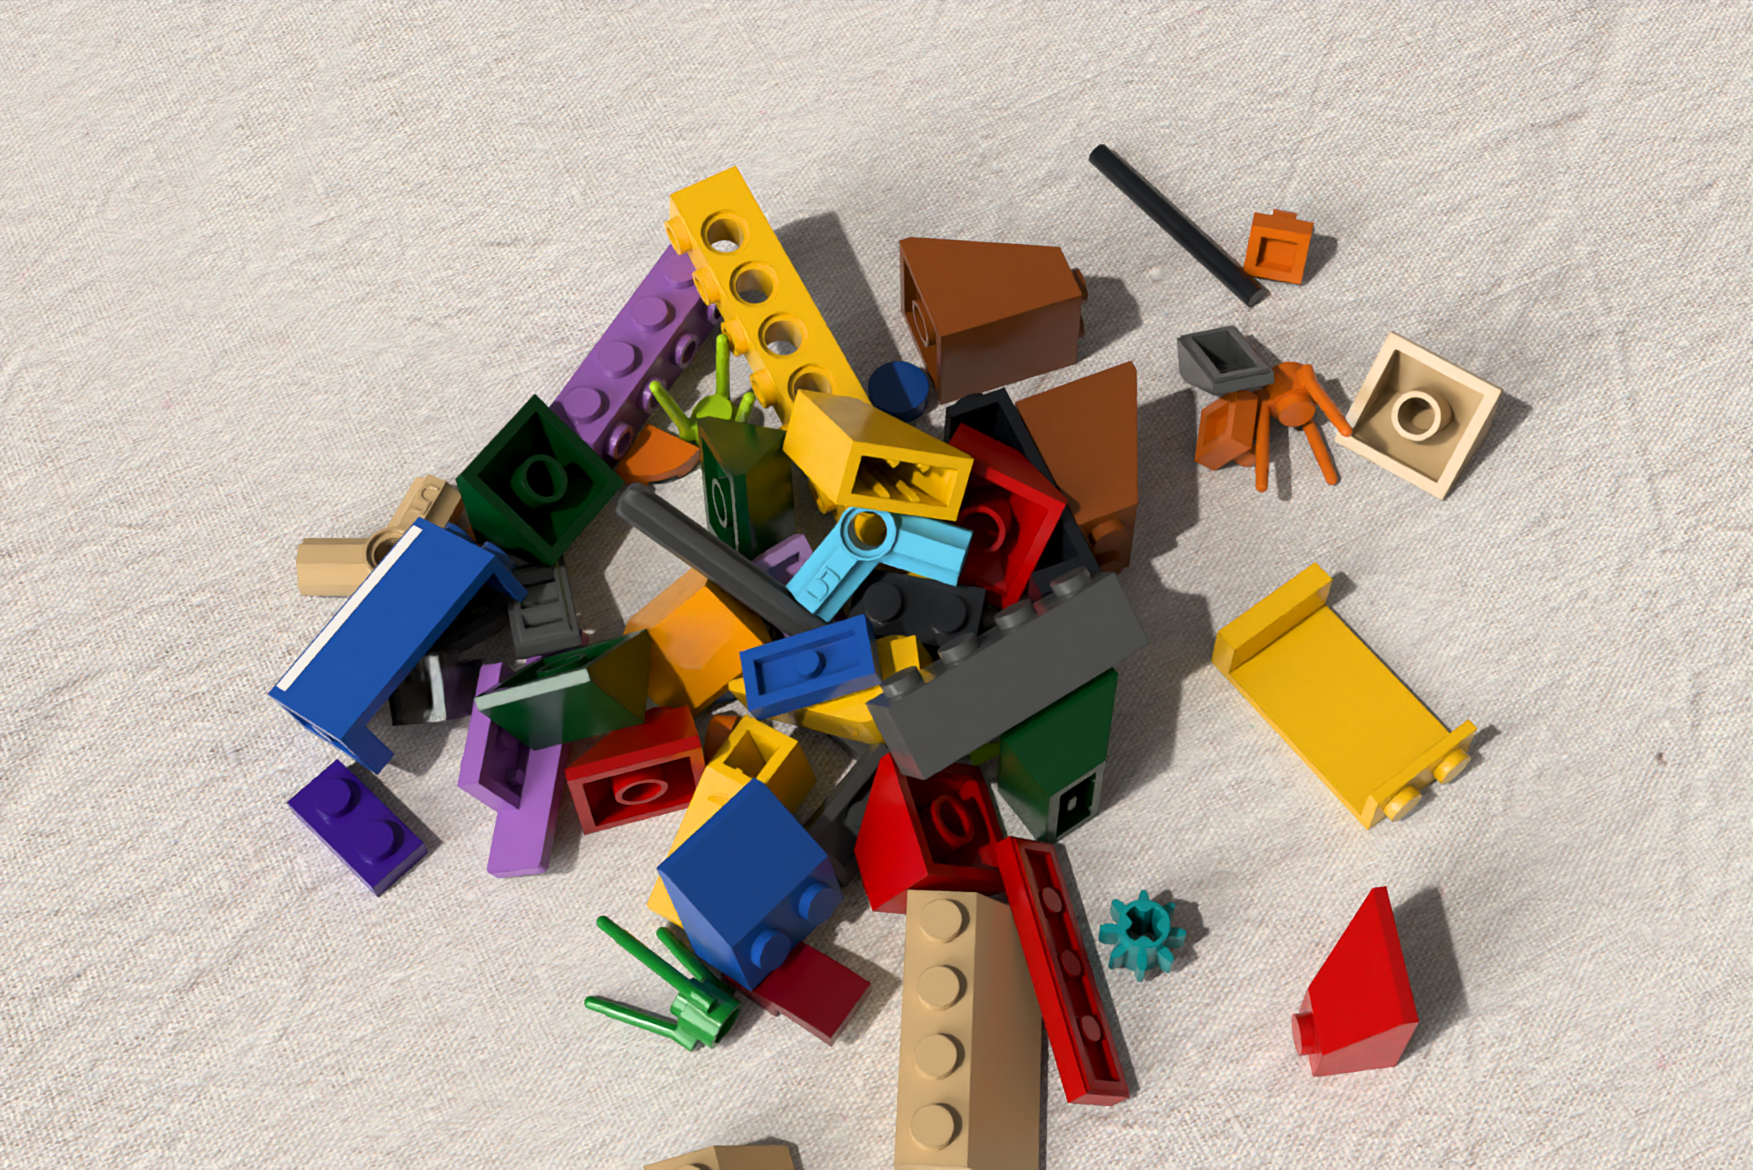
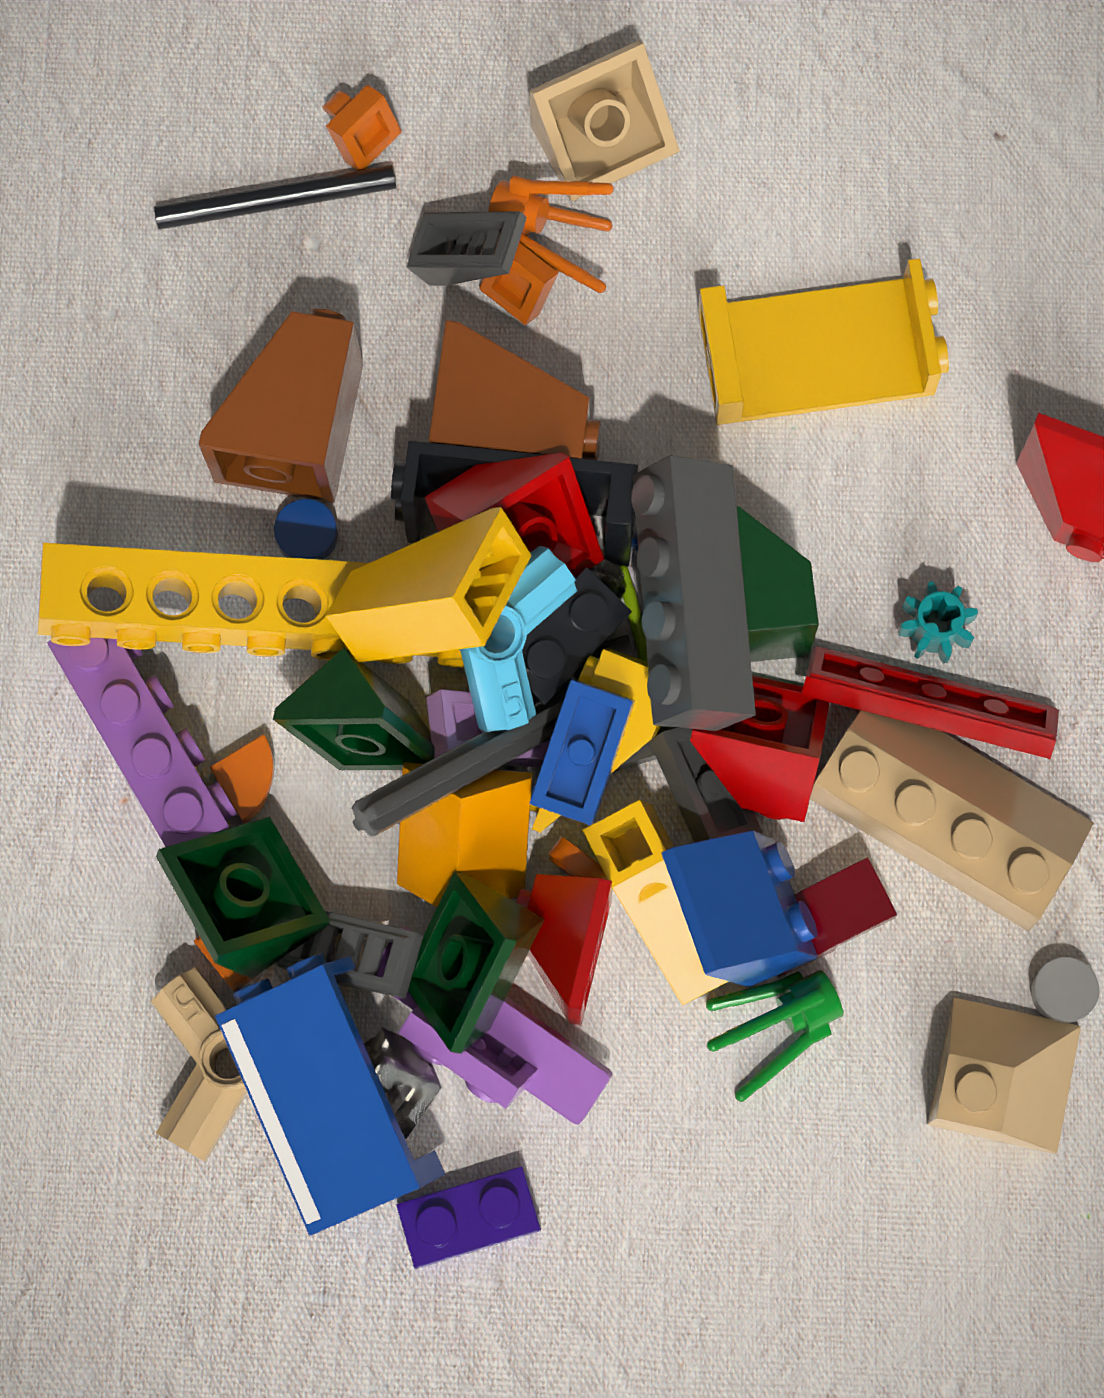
camera: 60 degrees left, 15 degrees up
(713, 405) = (246, 702): lime plant -> none

